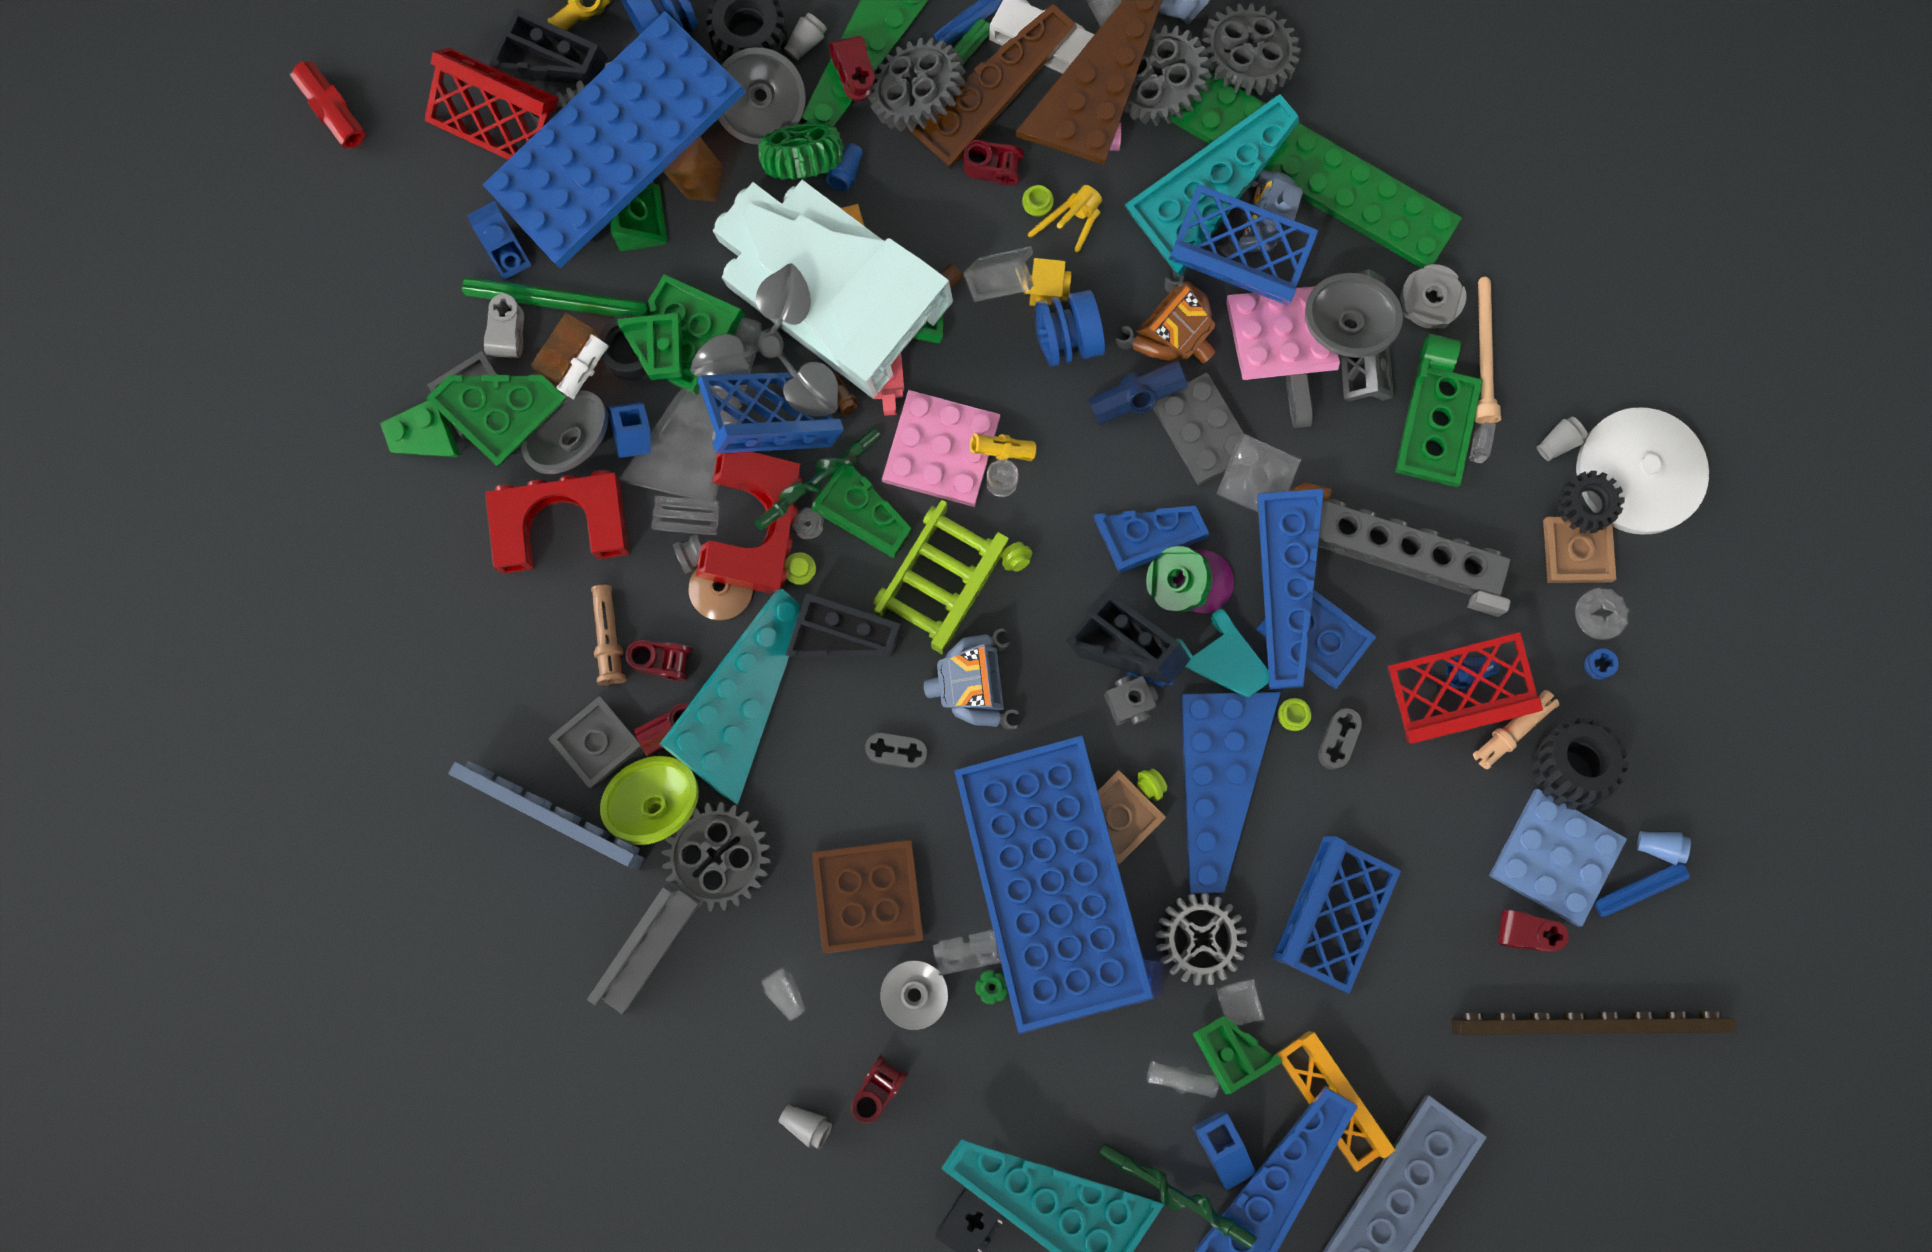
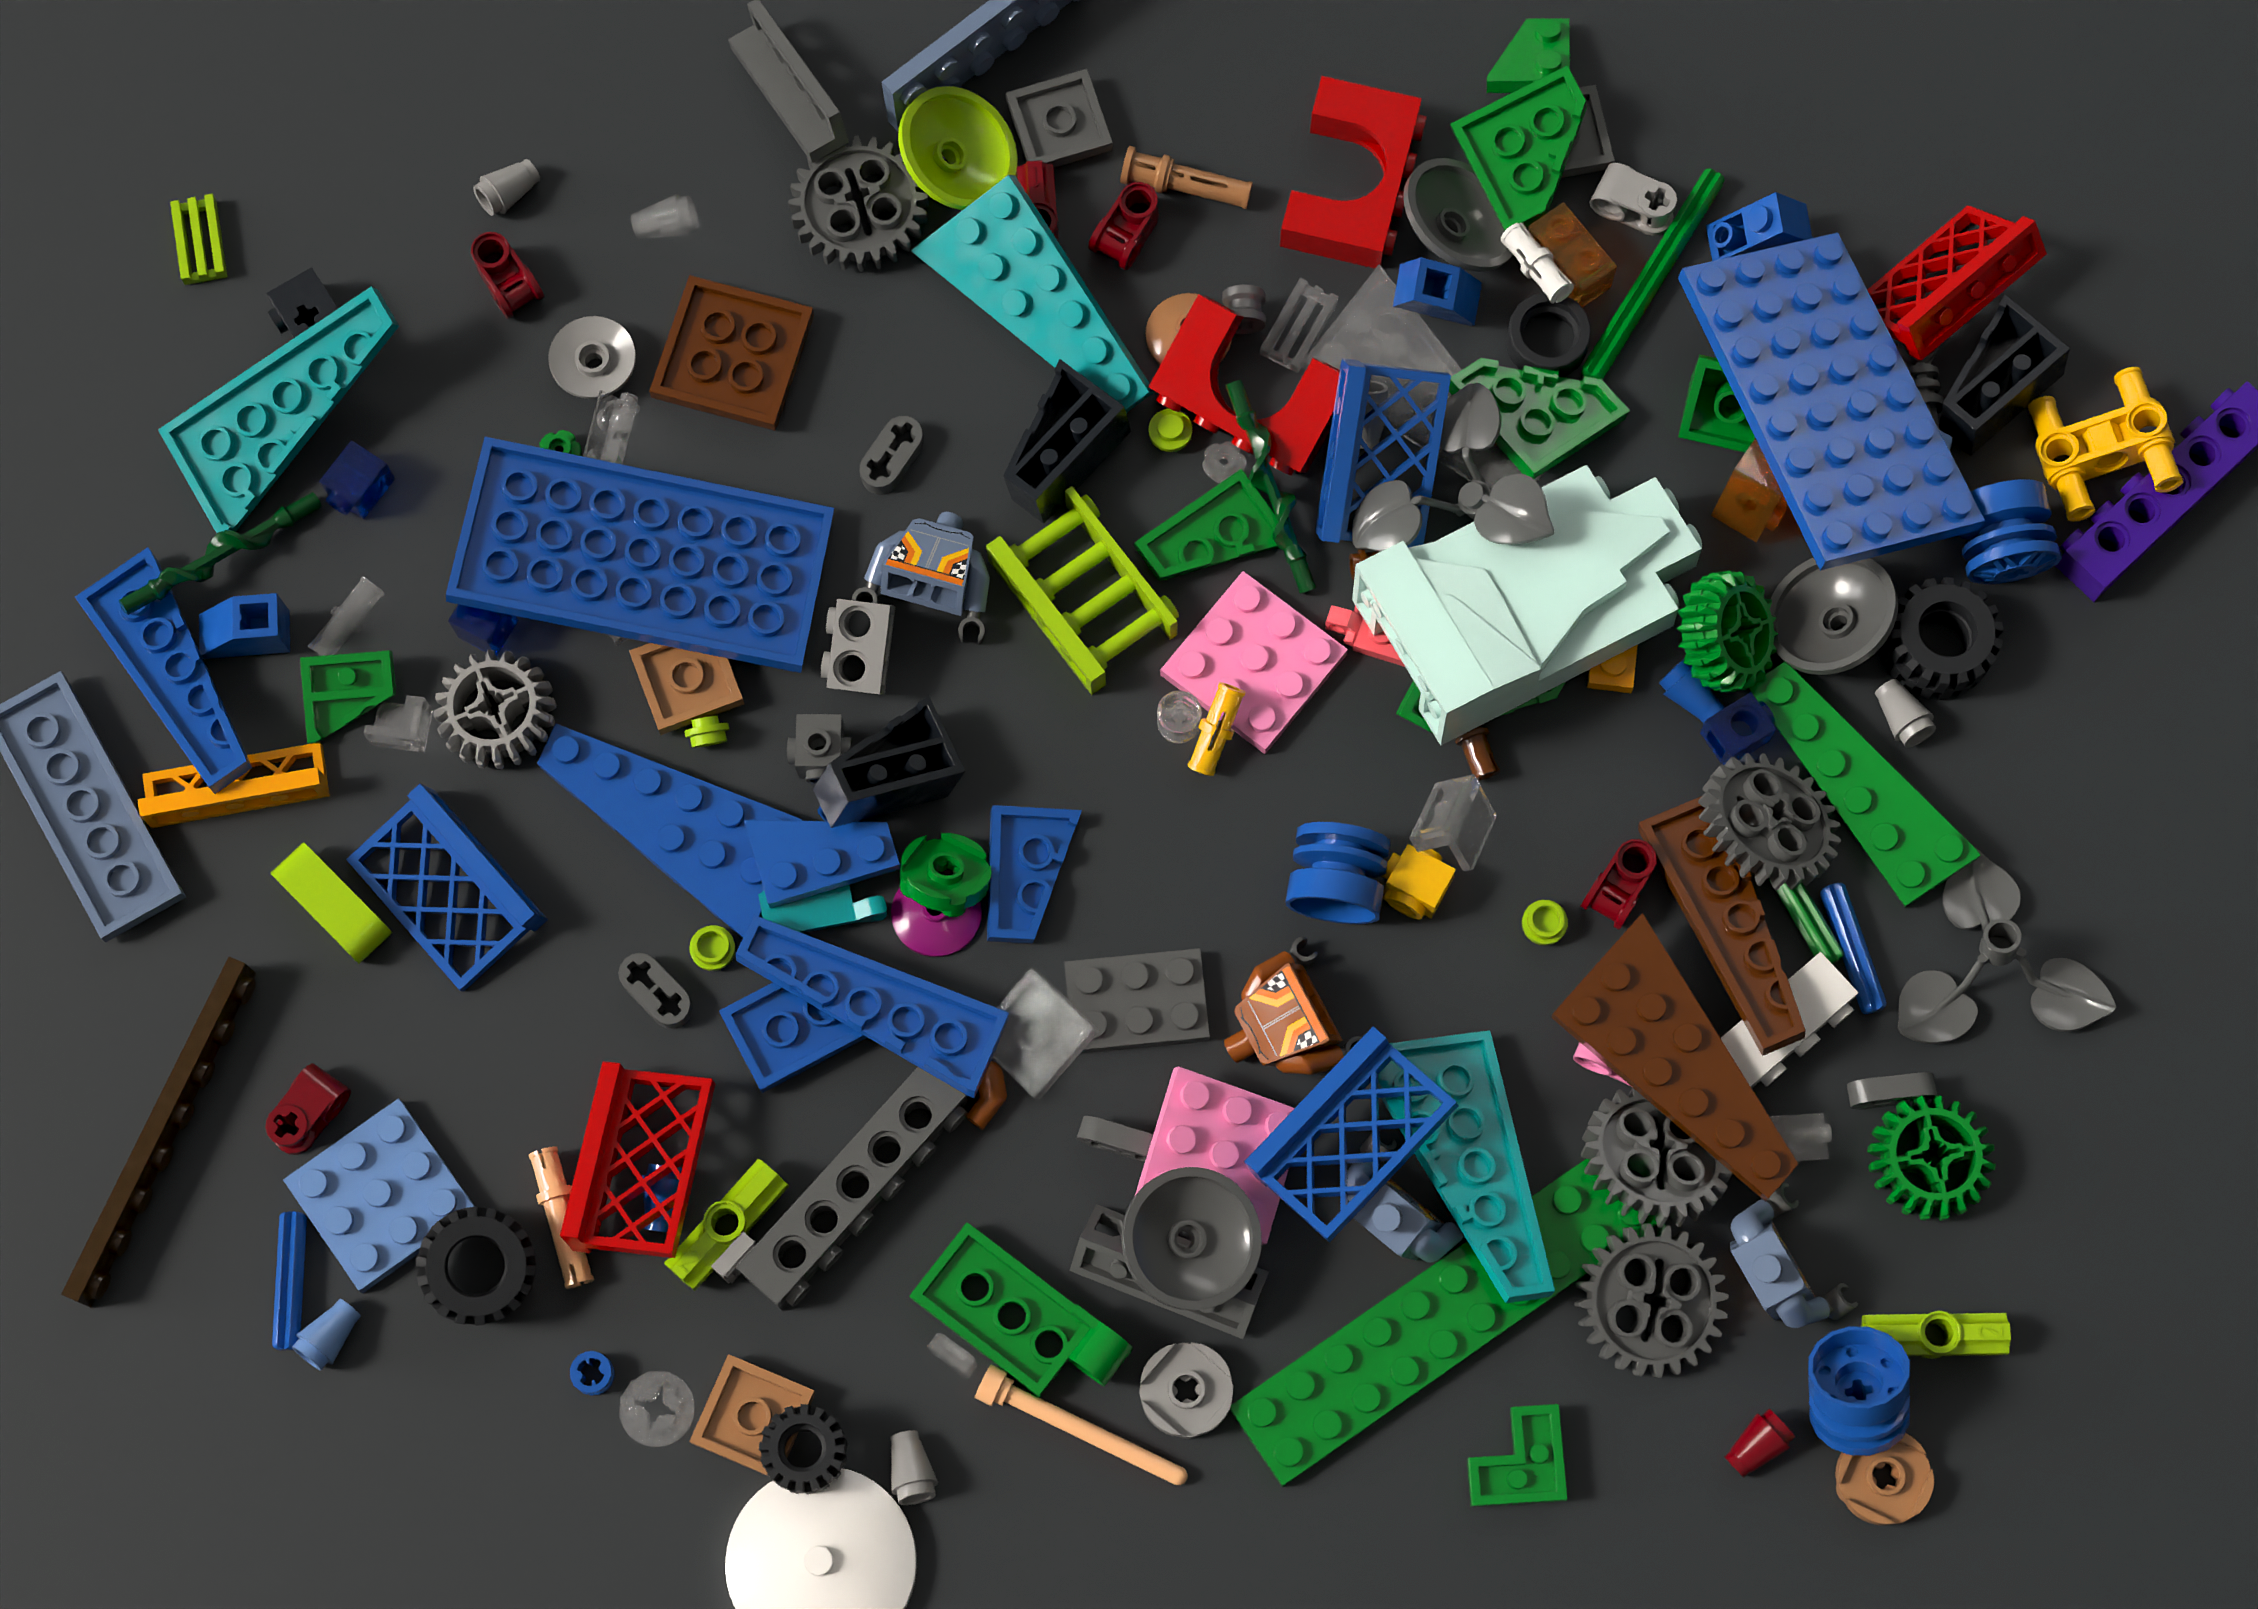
camera: 115 degrees right, 5 degrees down
(328, 104) = (2031, 96): red piece -> none
(656, 343) = (1528, 356): green wing -> none
(852, 63) = (1834, 744): dark red piece -> none
(866, 138) = (1727, 743): none -> clear blue brick
(1016, 556) = (1067, 691): lime plate -> none
(1047, 699) = (871, 648): none -> light grey brick
(1080, 205) = (1516, 975): yellow plant -> none
(1080, 1123) = (356, 481): none -> clear blue brick
(1138, 392) = (1216, 930): dark blue piece -> none
(1212, 672) = (813, 858): none -> blue wing
(1381, 80) = (1533, 1471): none -> green plate
(1385, 987) = (331, 903): none -> lime beam
(1451, 614) = (748, 1201): none -> lime piece

